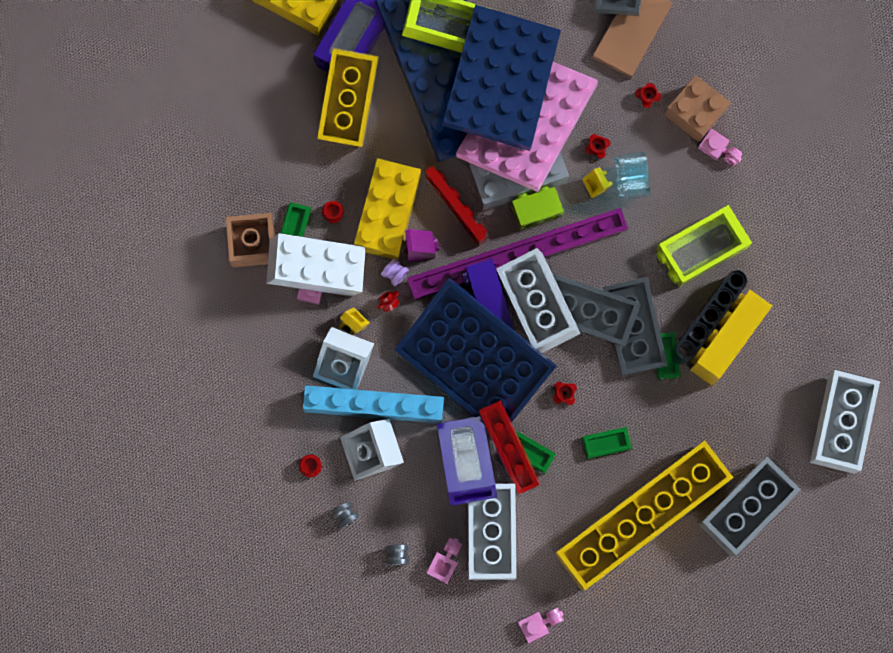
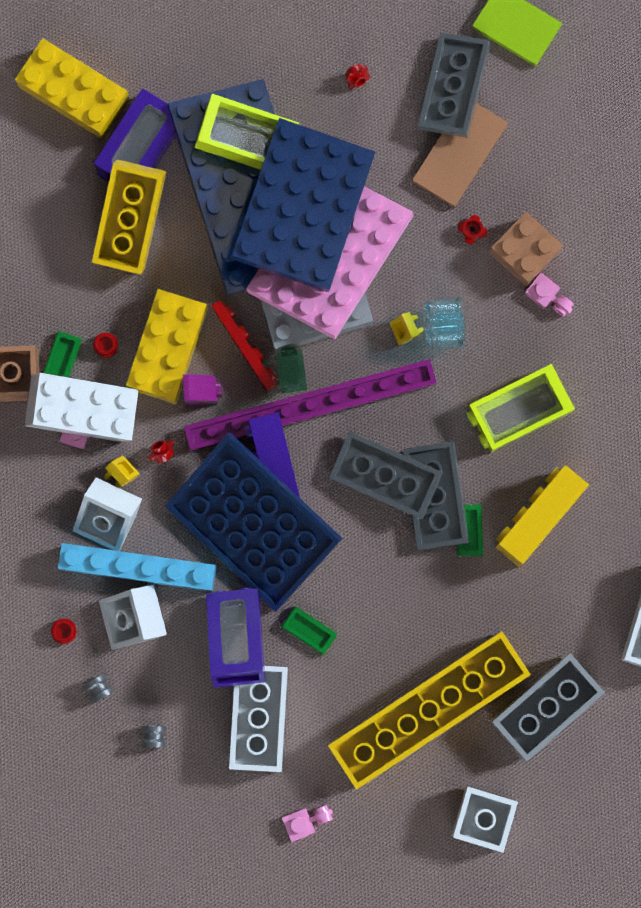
camera: 10 degrees right, 5 degrees up
(395, 272) = (171, 418): lavender wheel -> none
(442, 566) = (203, 751): bright pink plate -> none
(499, 222) = (291, 370): none -> clear green slope
(509, 447) = (285, 624): red plate -> none
(536, 208) = (335, 355): lime brick -> none
(538, 301) = (327, 462): white brick -> none
(560, 388) = (346, 571): red plate -> none
(597, 140) = (408, 278): red plate -> none
(606, 443) = (395, 624): green tile -> none
(701, 610) = (484, 819): none -> white brick
(714, 308) = (530, 484): black beam -> none

